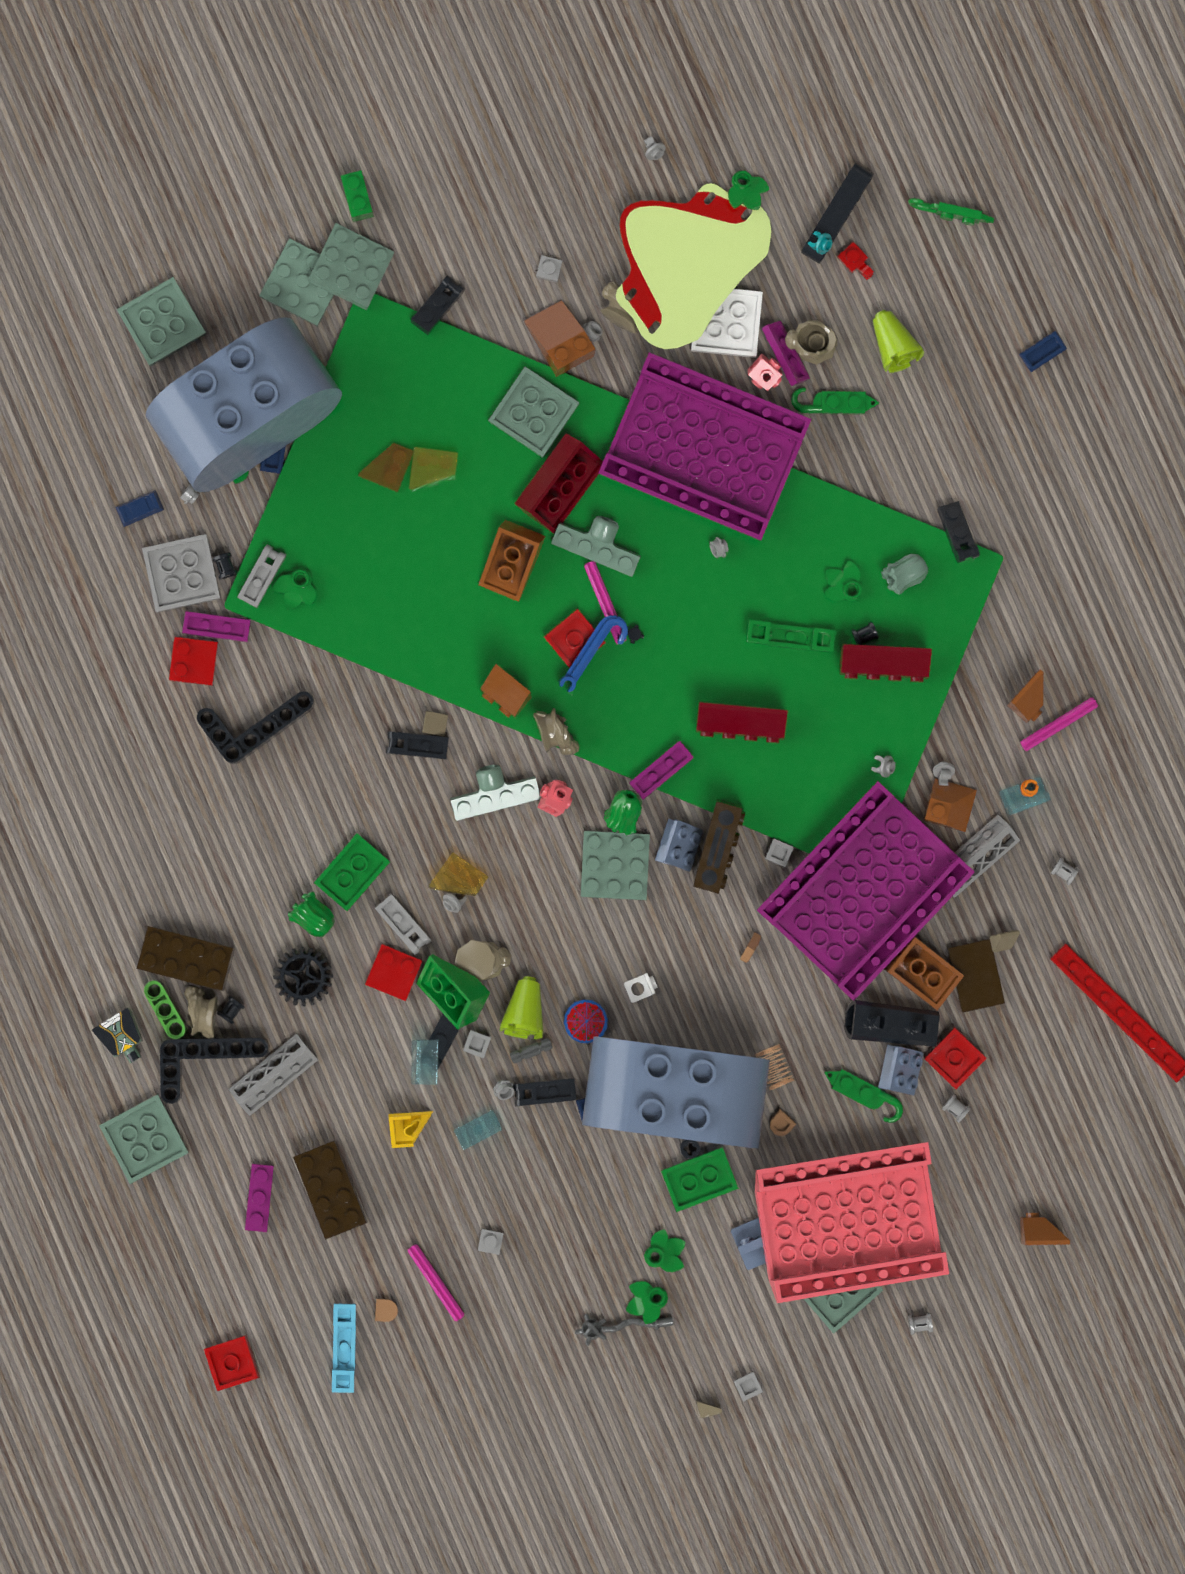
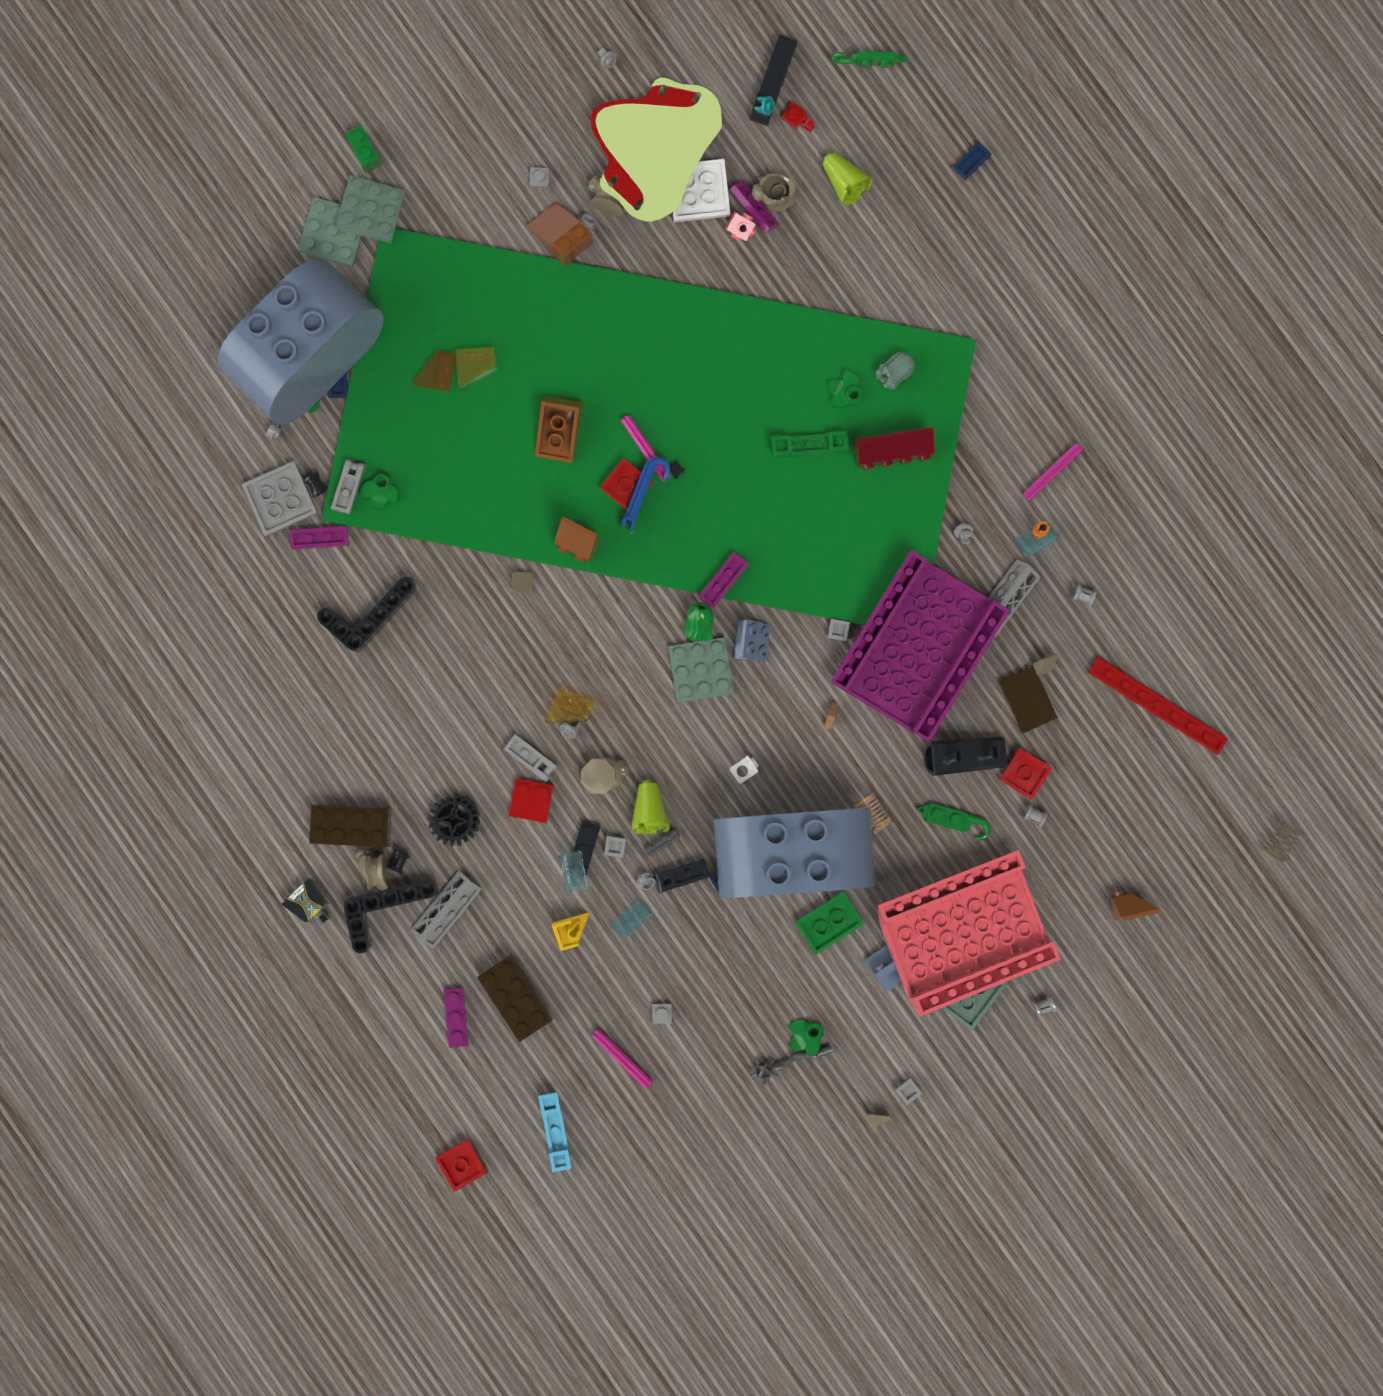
camera: 10 degrees left, 0 degrees up
(139, 508) = (233, 451): dark blue tile -> none
(144, 1139) = (346, 988): sand green plate -> none
(161, 321) = (219, 289): sand green plate -> none
(173, 1017) = (333, 870): bright green beam -> none
(193, 661) = (305, 571): red plate -> none
(312, 915) = (451, 766): green piece -> none
(352, 872) = (477, 722): green plate -> none
(385, 1310) = (584, 1091): medium nougat tile -> none
(418, 745) = (511, 603): black plate -> none
(437, 305) = (451, 227): black plate -> none
(453, 991) = (585, 806): green slope -> none
(494, 794) = (585, 630): plate -> none
(533, 412) = (551, 299): sand green plate -> none
(555, 733) = (626, 567): dark tan piece -> none
(555, 797) = (638, 622): coral brick -> none
(560, 483) = (586, 355): dark red slope -> none
(585, 1020) = (703, 807): red tile -> none
(597, 545) = (629, 400): sand green plate -> none
(668, 1251) = (815, 990): green plate -> none
(685, 1153) = (820, 901): black bush -> none
(705, 446) = (703, 297): magenta slope -> none
(718, 845) = (786, 635): dark brown brick -> none
(719, 547) = (732, 381): light grey plate -> none
(741, 721) = (783, 524): dark red slope -> none
(749, 193) = (694, 79): green plate -> none
(781, 1124) = (888, 860): medium nougat tile -> none
(835, 402) = (805, 240): green plate -> none
(869, 631) = (875, 423): black bush -> none
(887, 766) = (915, 537): light grey plate -> none
(901, 1070) = (981, 793): sand blue bracket -> none
(924, 973) = (984, 706): dark orange slope -> none
(950, 805) = (974, 560): dark orange slope -> none
(958, 531) = (932, 326): black plate -> none
(1029, 699) = (1024, 454): dark orange slope -> none

